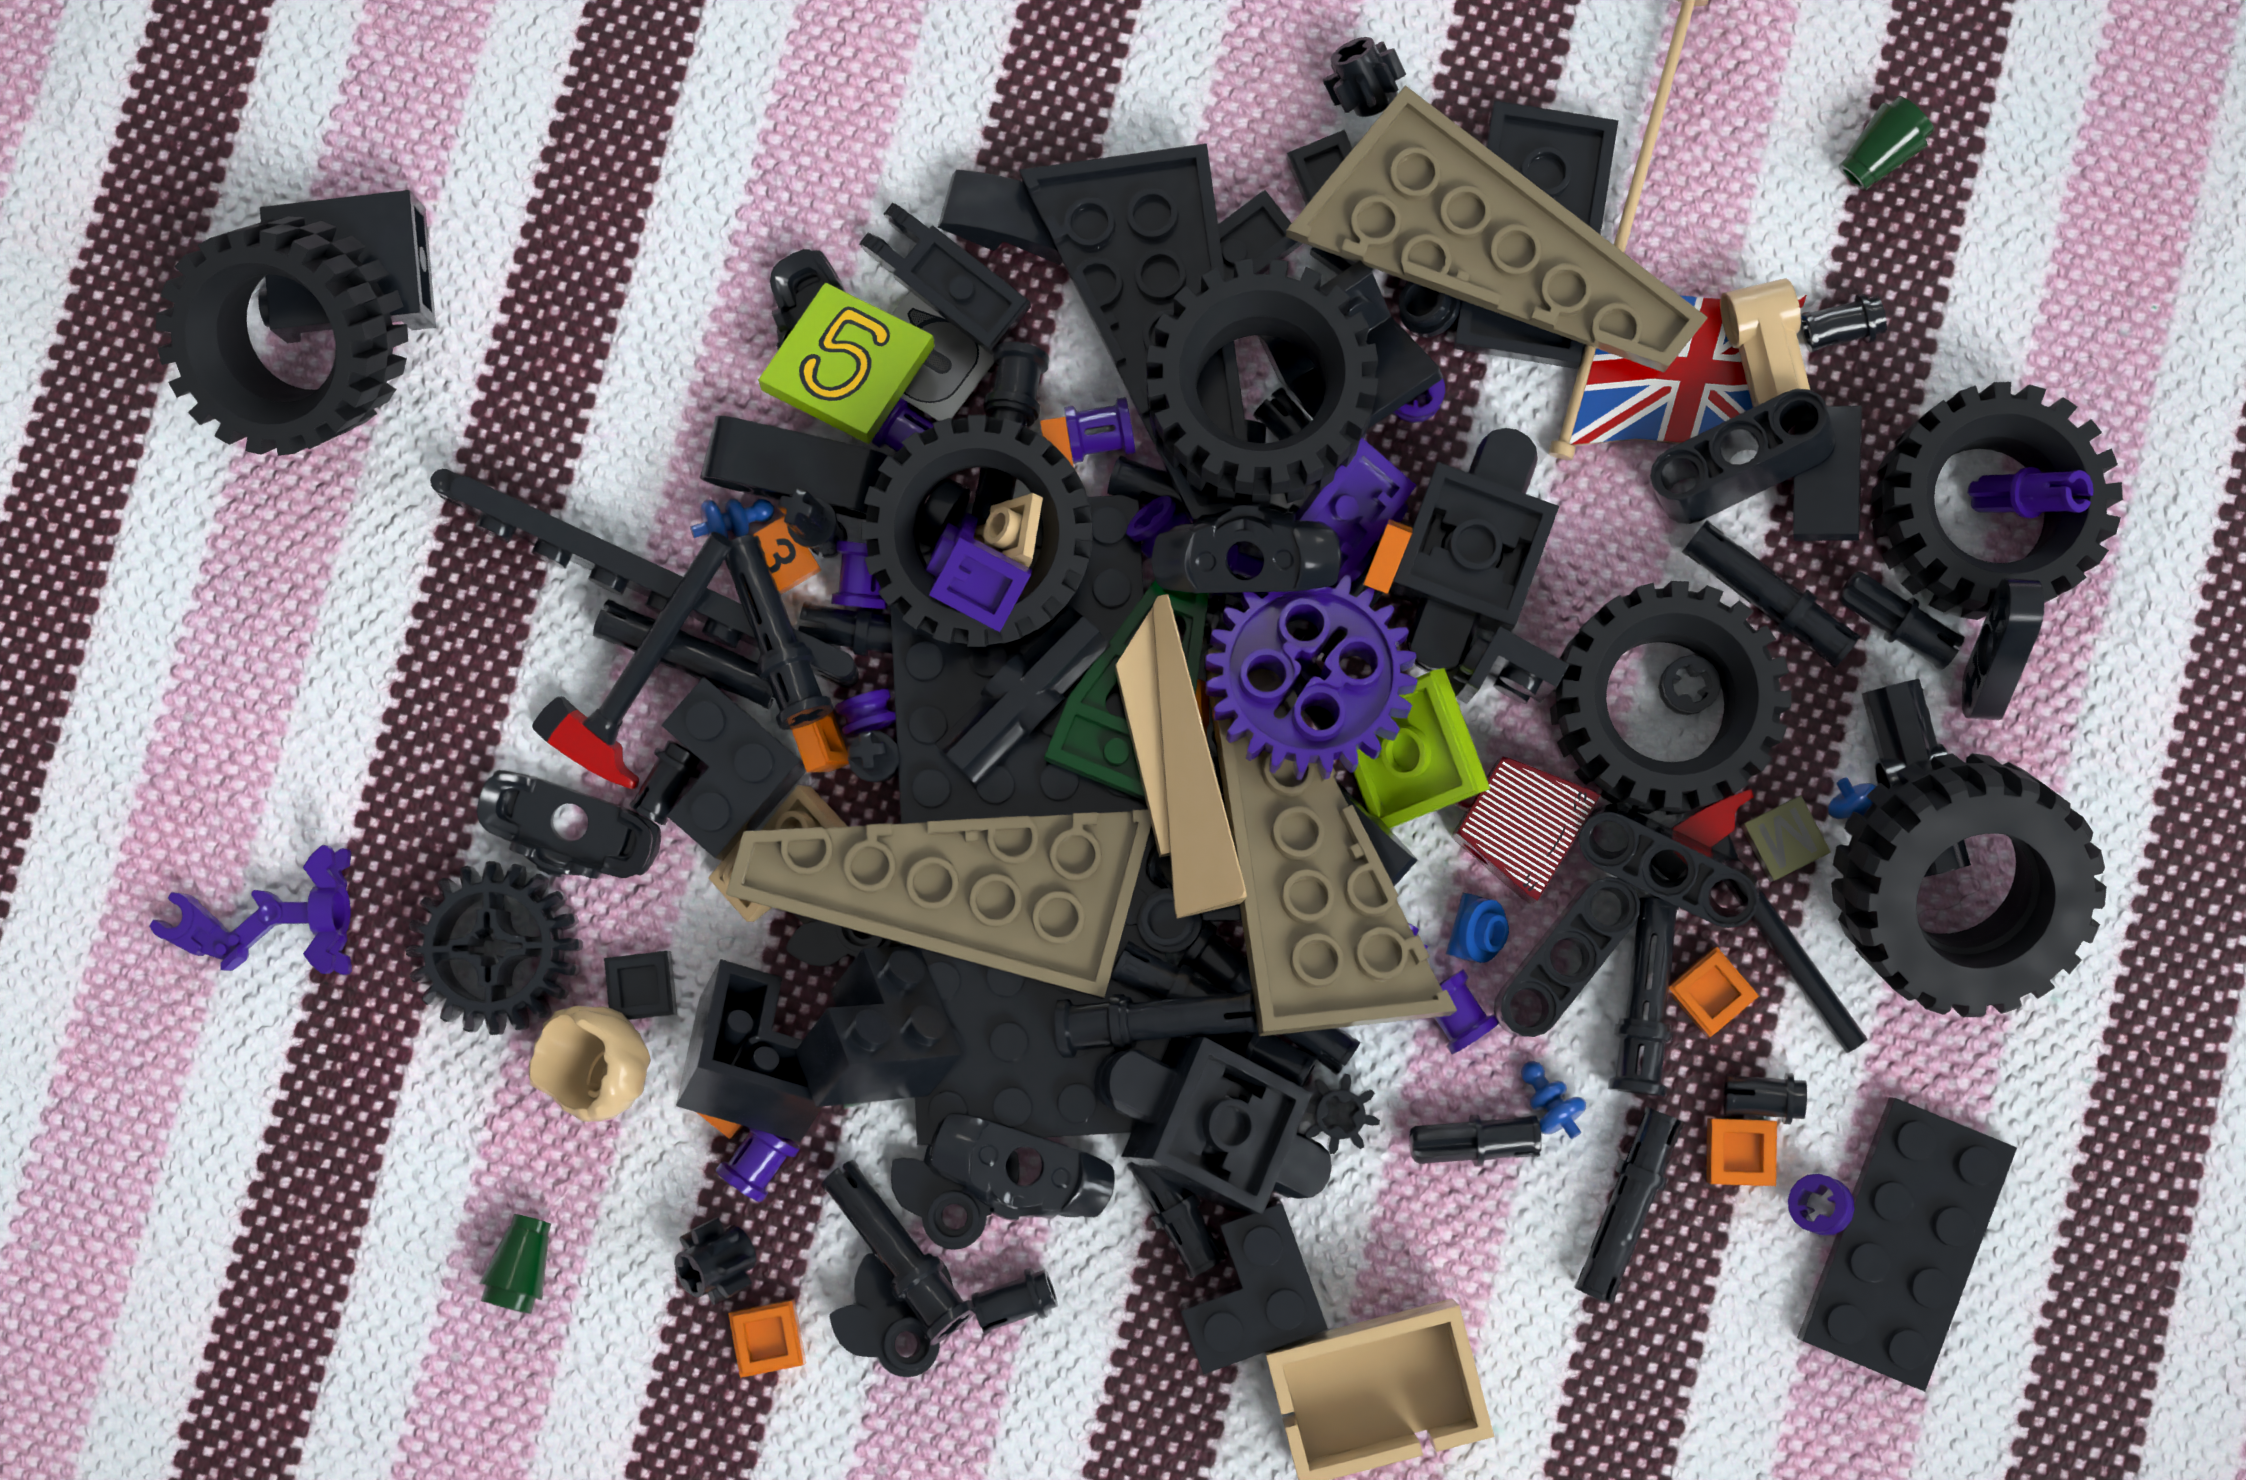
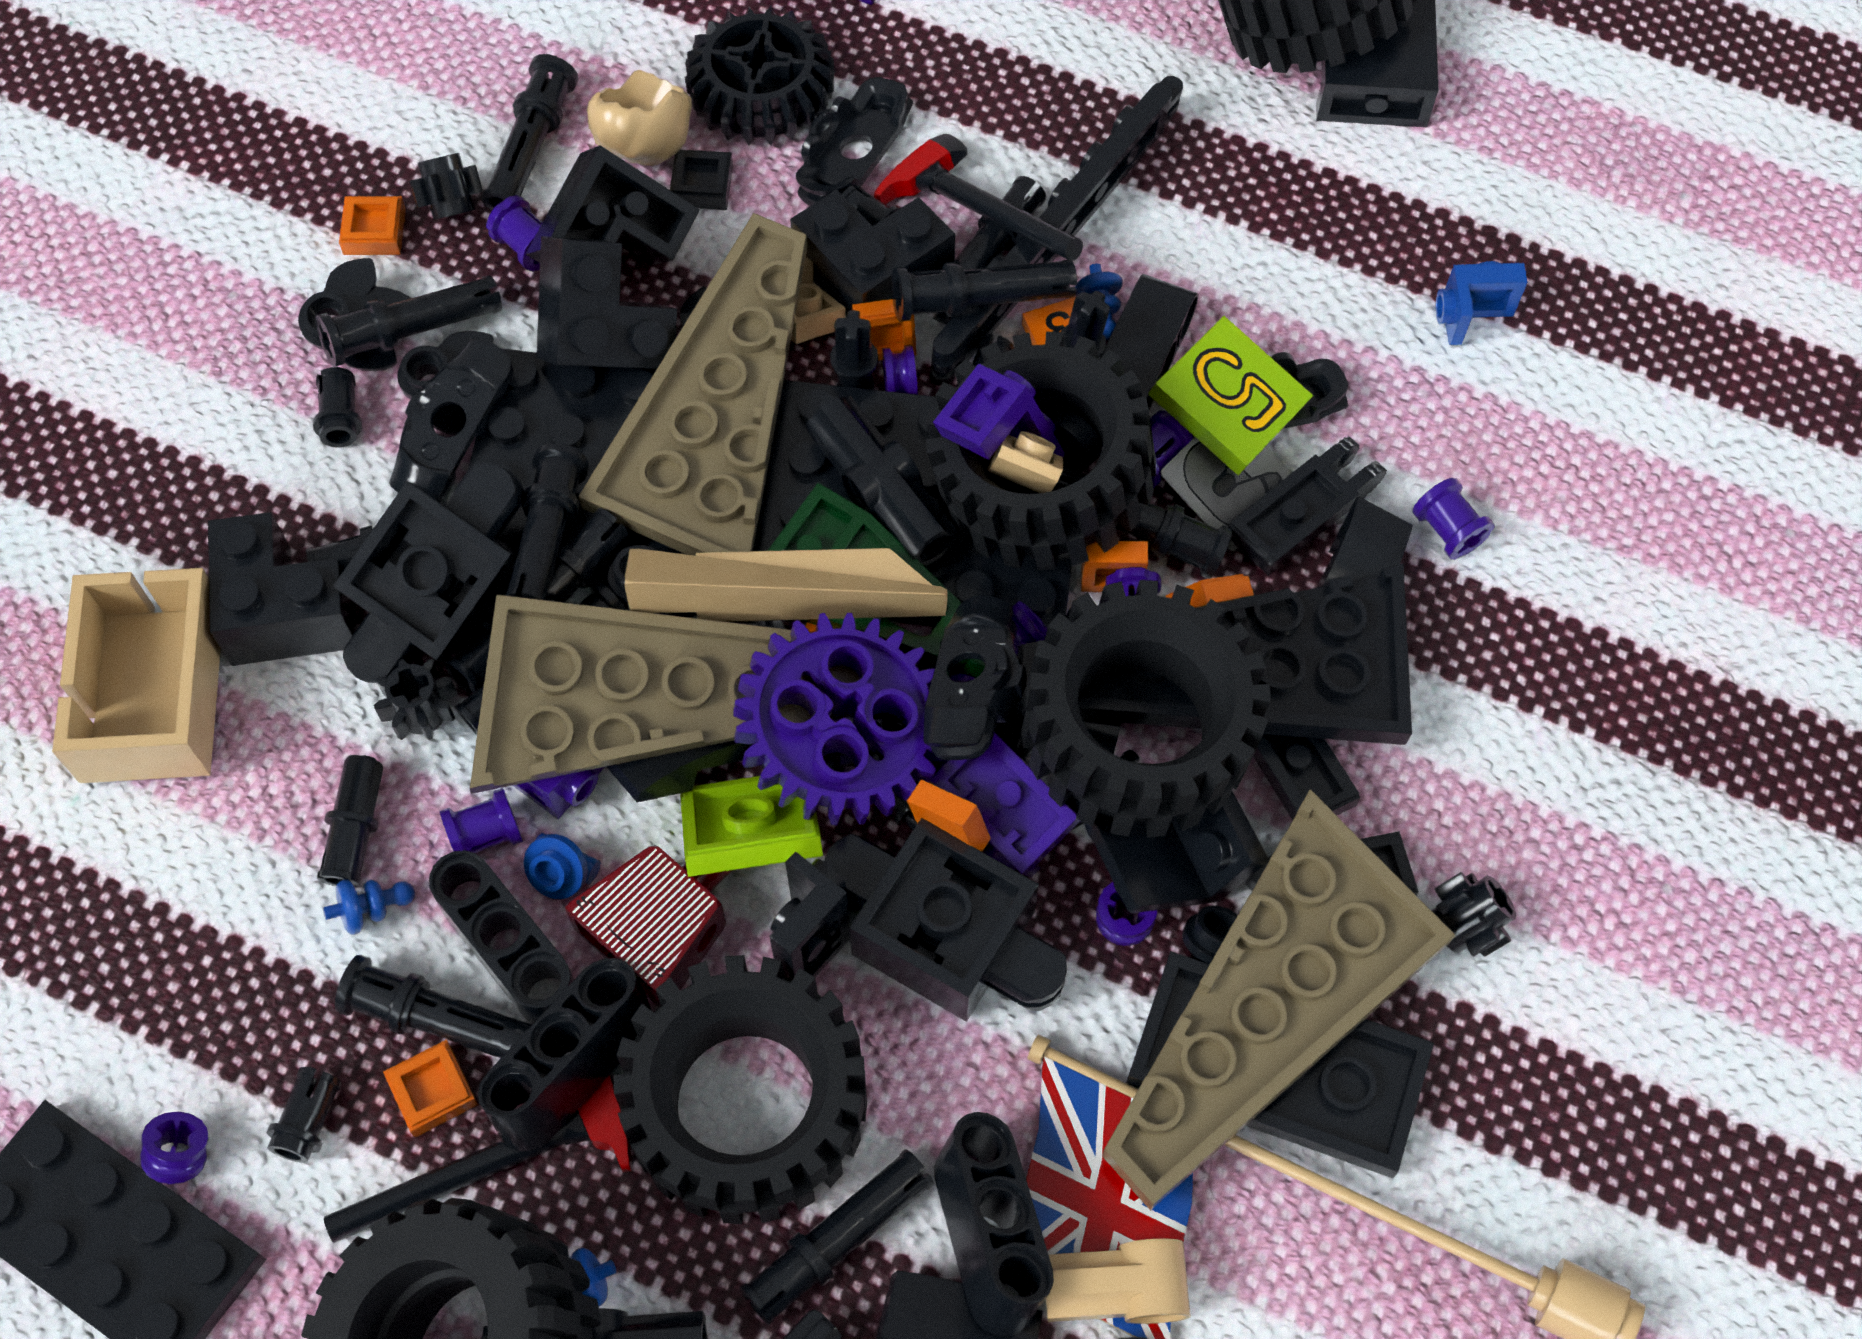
camera: 90 degrees right, 20 degrees down
(518, 1266) = (488, 57): dark green cone -> none
(579, 1192) = (536, 114): none -> black pin
(650, 123) = (1477, 292): none -> blue bracket
(938, 131) = (1453, 518): none -> dark purple bush
(1083, 356) = (1219, 589): none -> orange tile
(1626, 1213) = (260, 969): black pin -> none
(1683, 703) = (739, 1120): black bush -> none
(1741, 1152) = (256, 1082): orange tile -> none
(1785, 838) = (570, 1197): olive tile -> none

